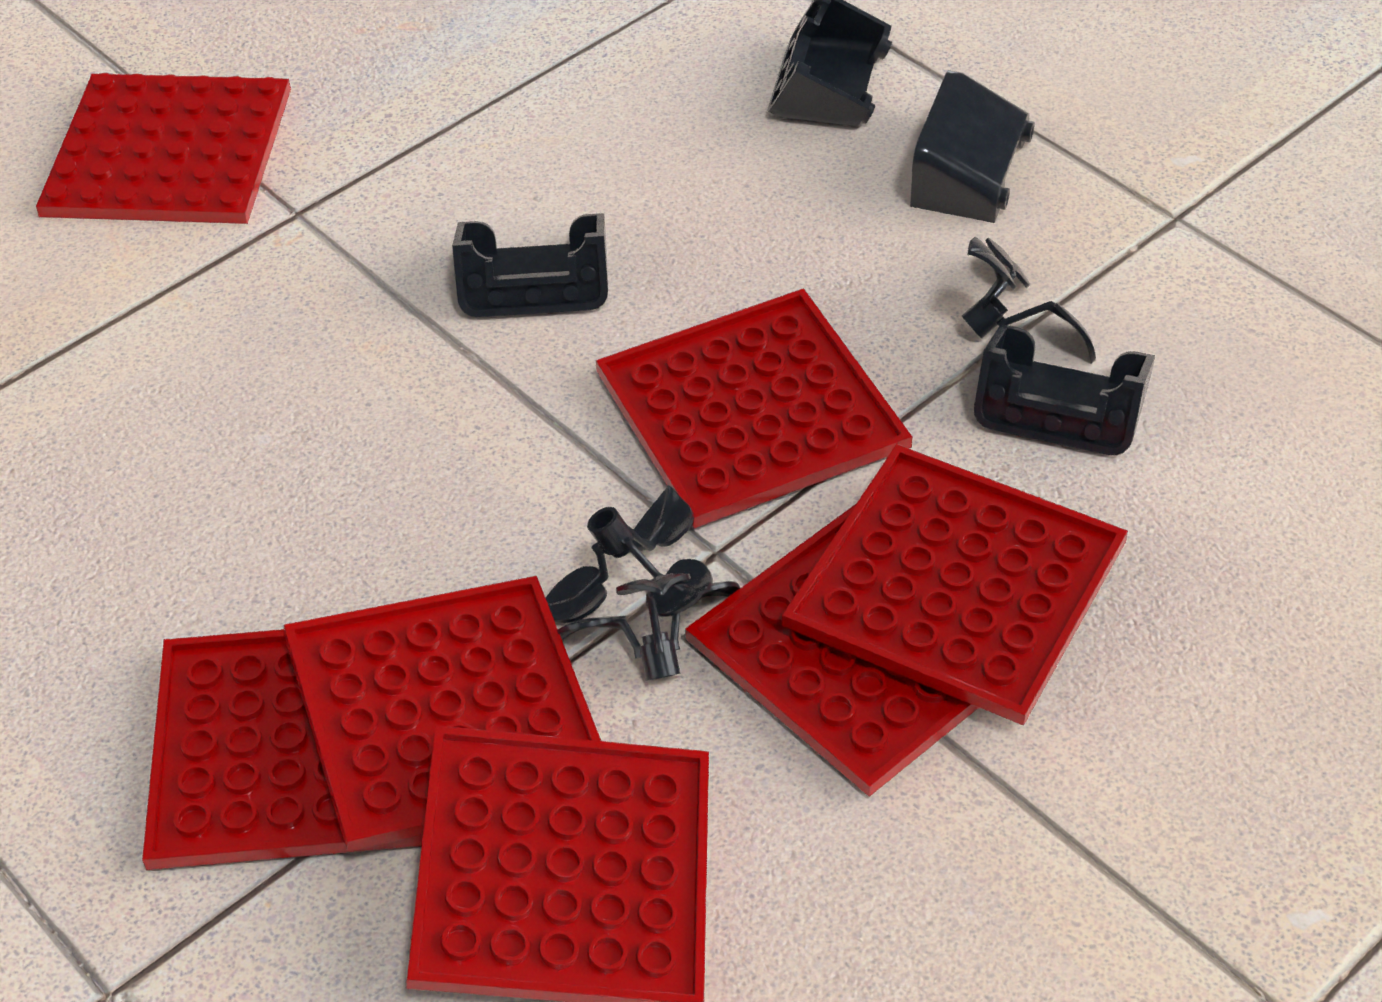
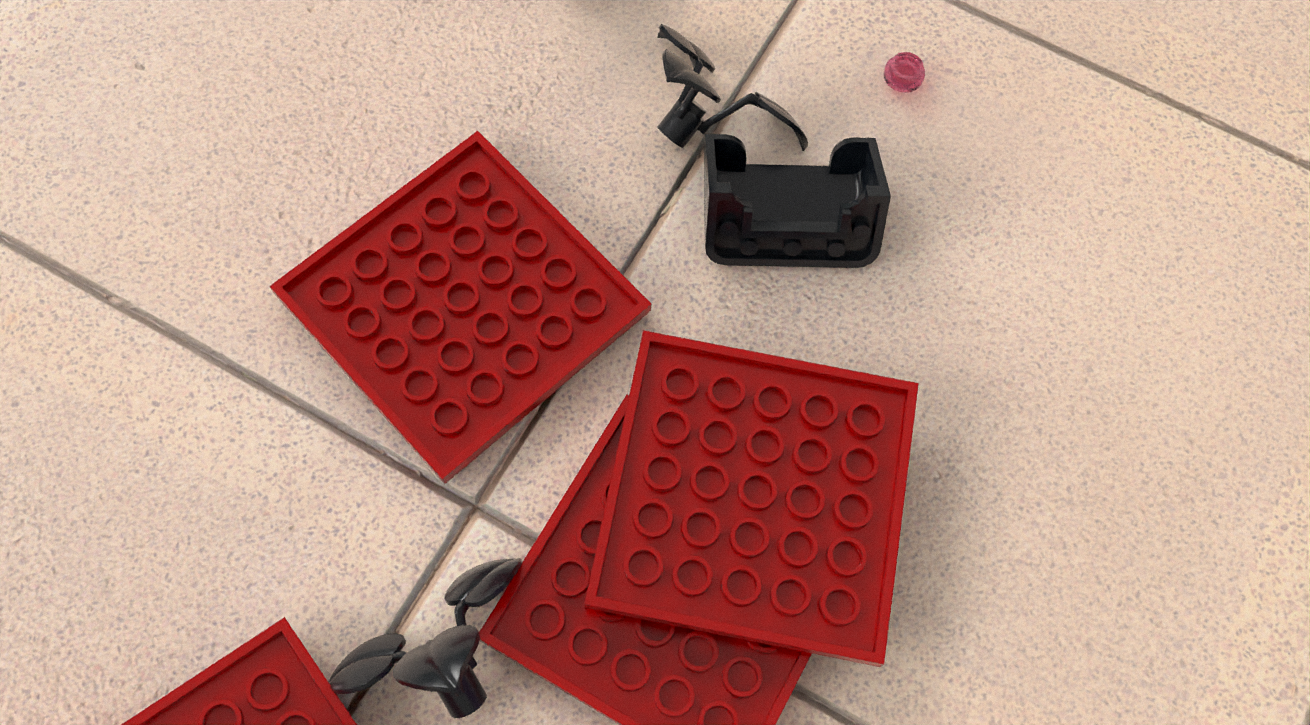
camera: 25 degrees left, 20 degrees up
(531, 277) = (156, 181): black windscreen -> none
(661, 525) = (464, 593): black plant -> none
(1205, 320) = (904, 72): none -> clear pink plate

